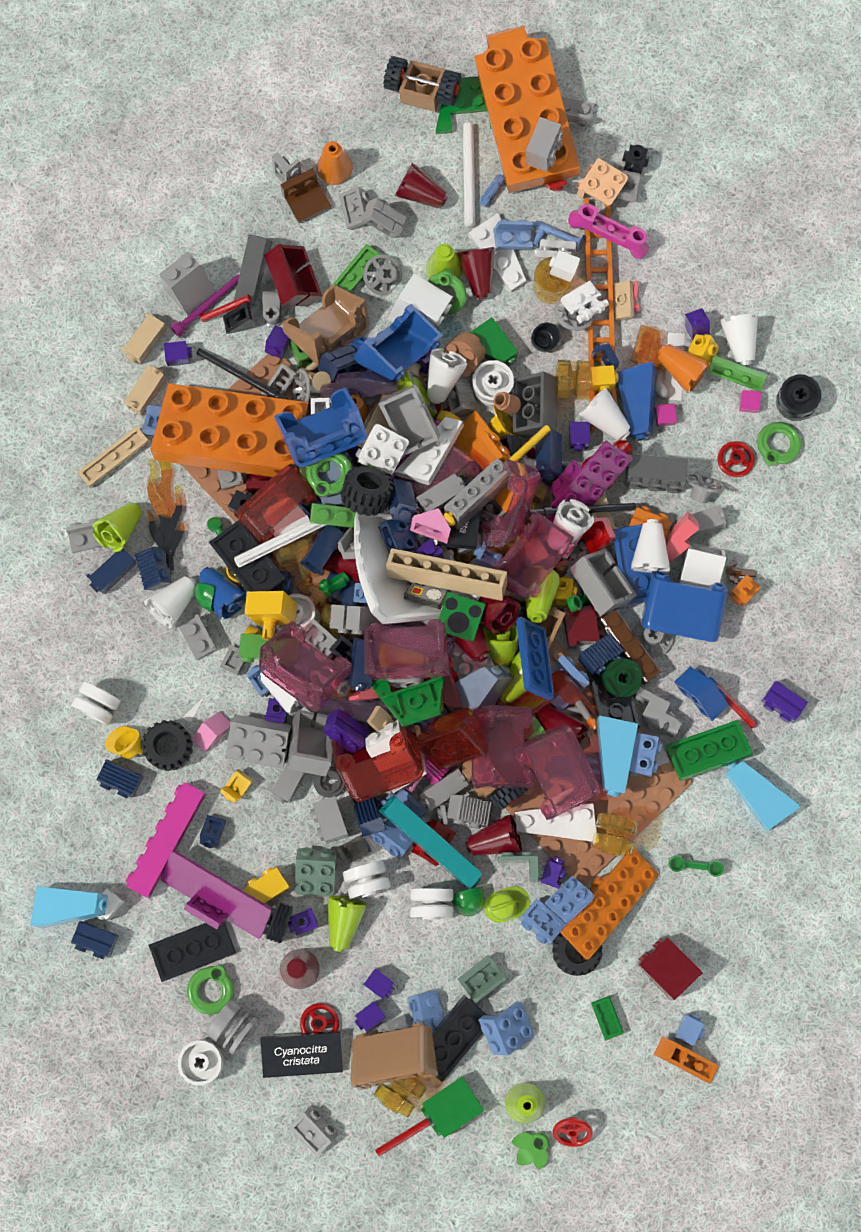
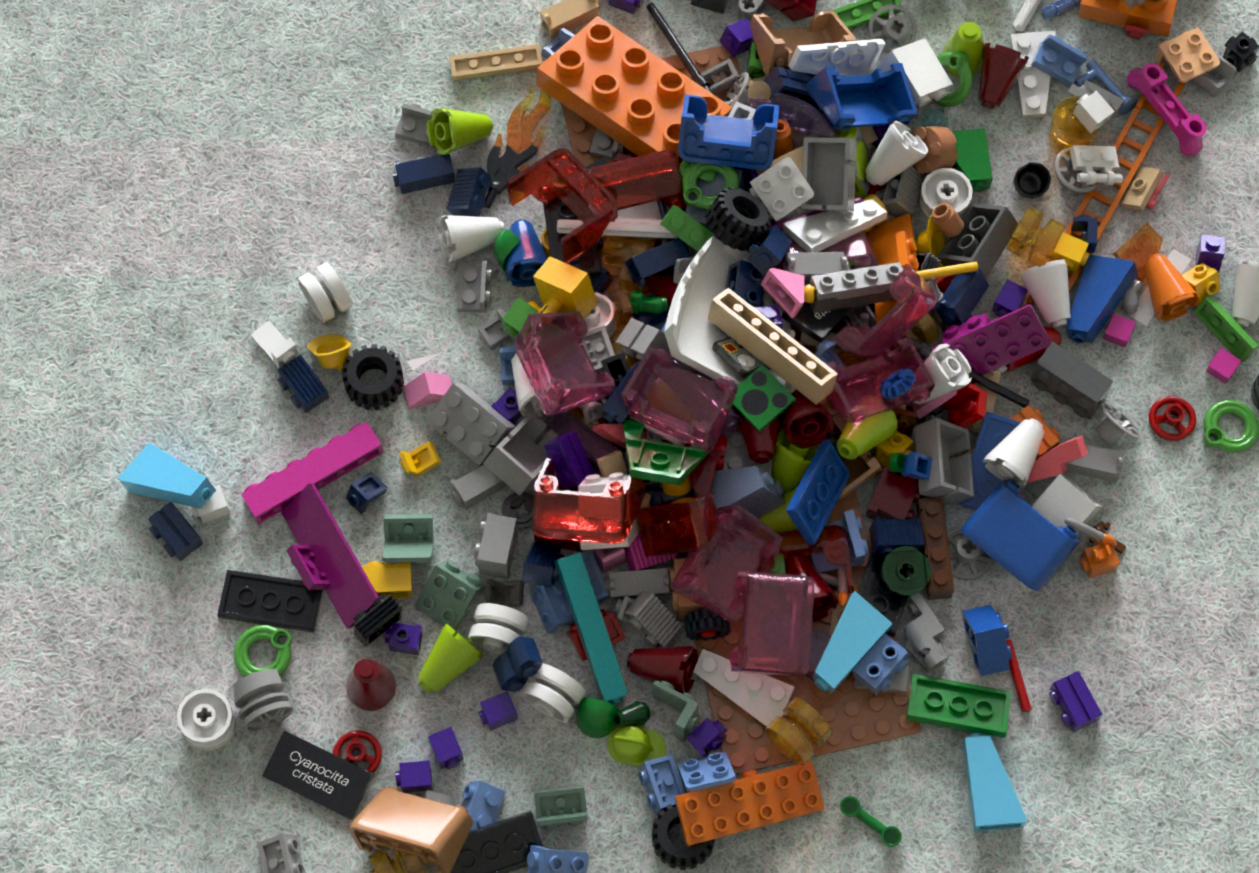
camera: 30 degrees right, 10 degrees down
(81, 760) = (274, 344): none -> white bracket
(223, 524) = (577, 187): none -> clear red windscreen
(264, 851) = (408, 538): none -> sand green bracket
(362, 322) = (847, 57): none -> white wing
(396, 899) = (517, 664): none -> dark blue brick
(399, 937) = (498, 711): none -> dark purple brick
(494, 884) = (632, 715): none -> dark green cone
(546, 555) = (897, 383): none -> blue gear
(589, 598) = (917, 466): none -> blue piece
(730, 577) = (1090, 531): none -> light grey piece

